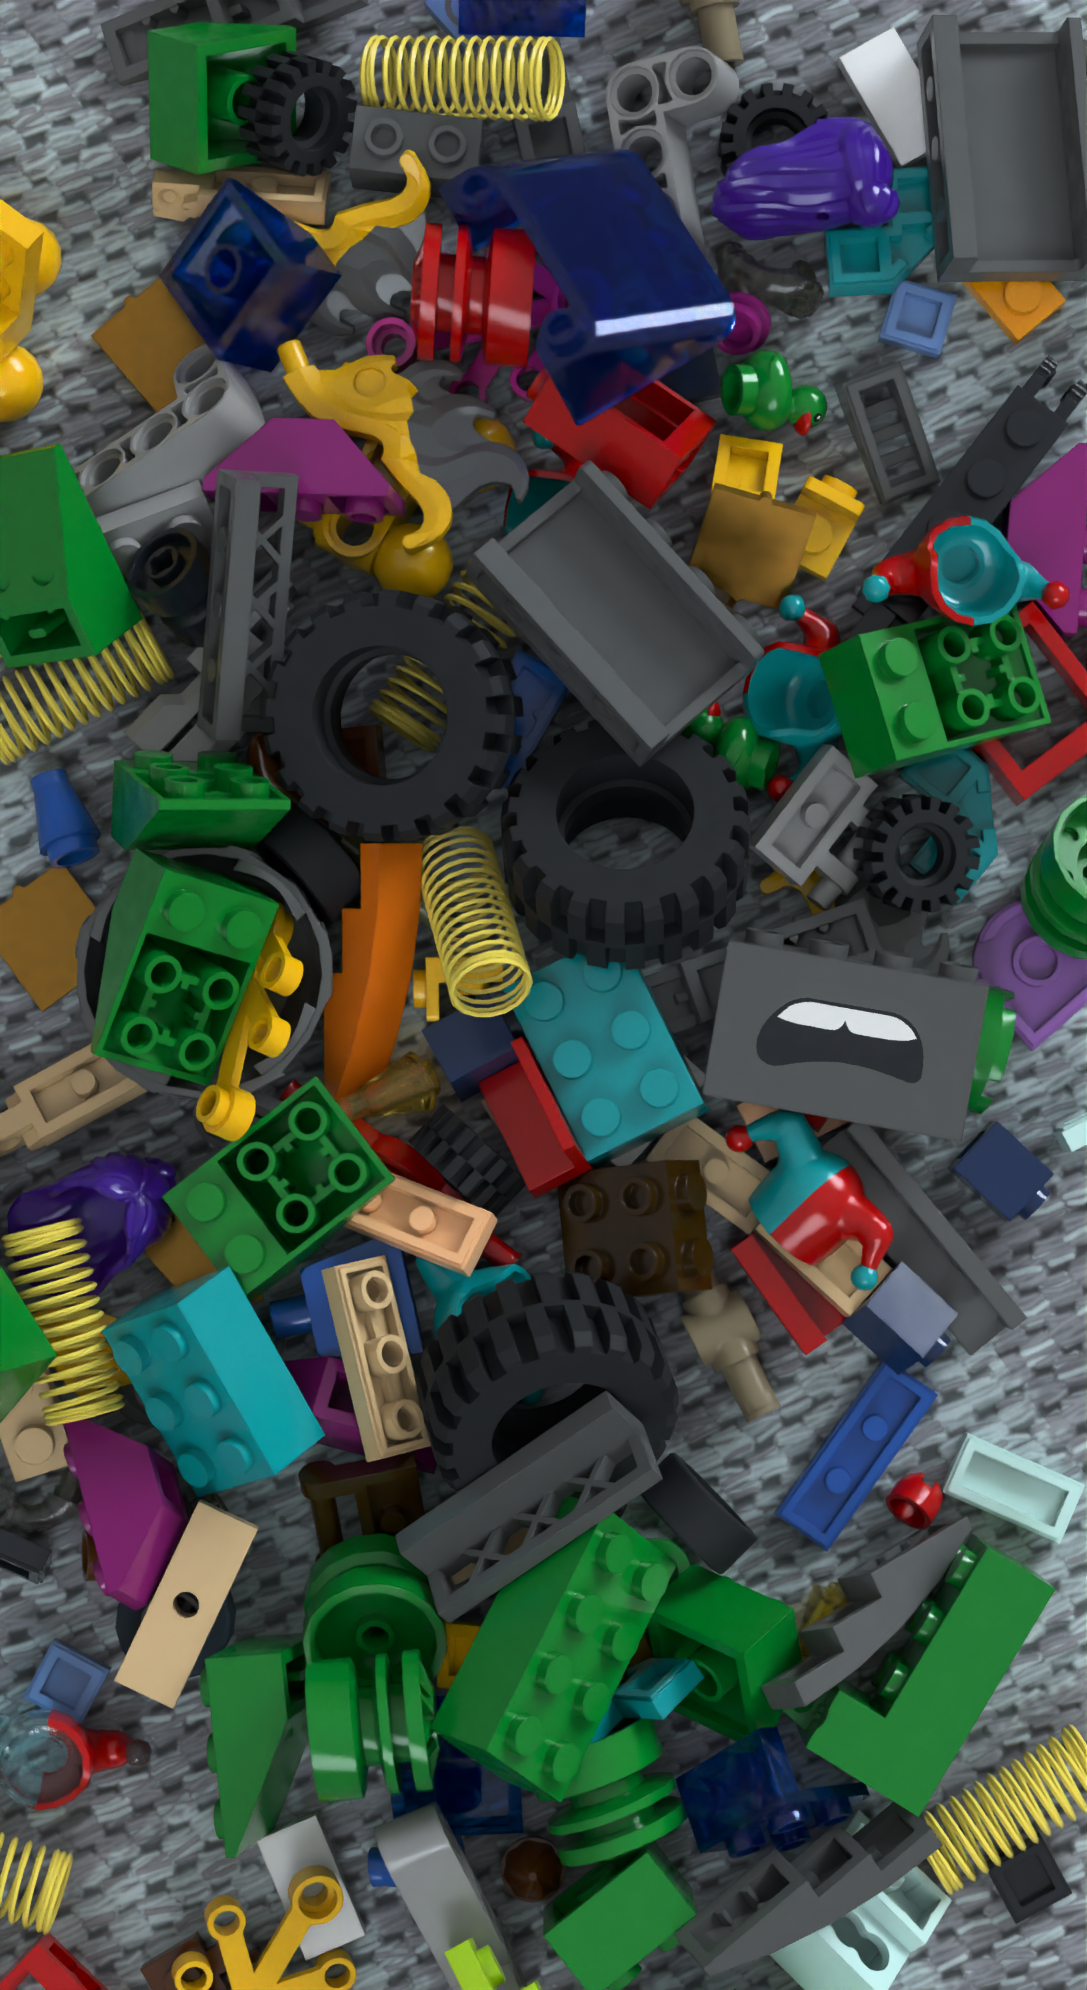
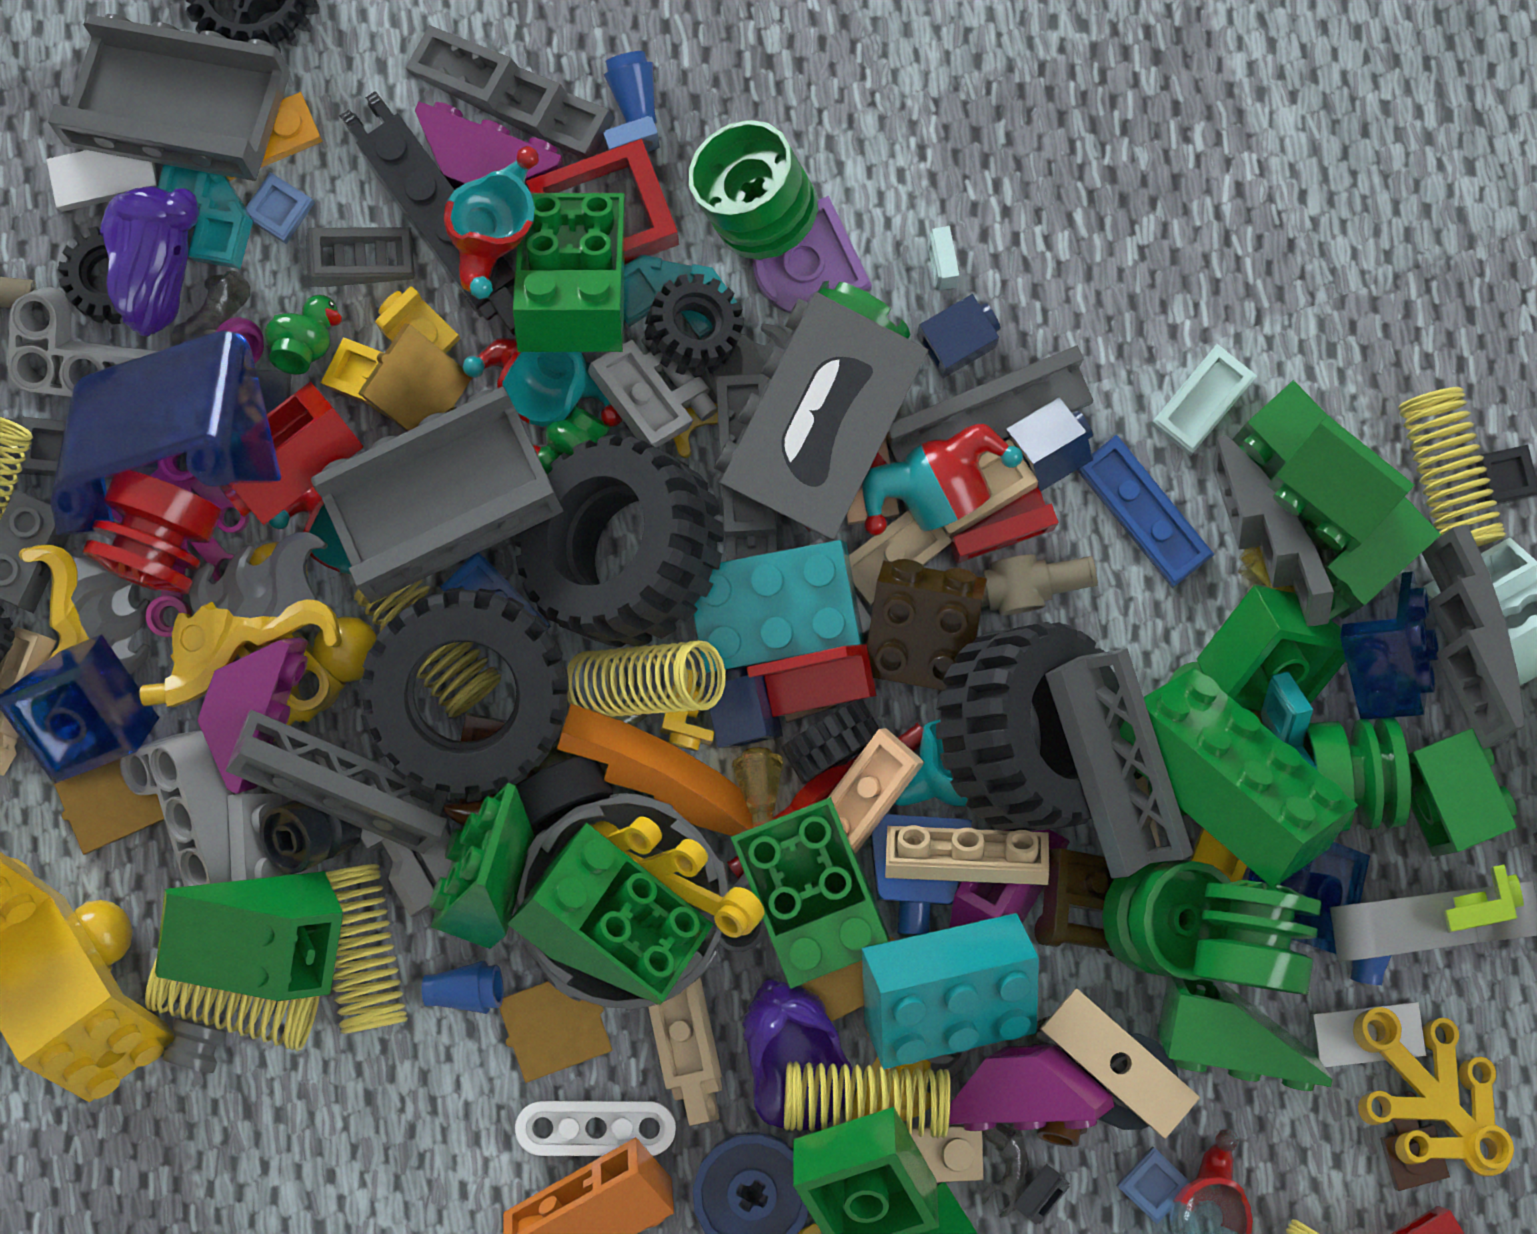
camera: 75 degrees left, 5 degrees down
(532, 1869) = (1400, 854): reddish brown plate -> none
(698, 1515) = (1163, 639): black tyre -> none
(914, 1501) = (1194, 476): red hinge -> none
(933, 1677) = (1338, 485): none -> green slope

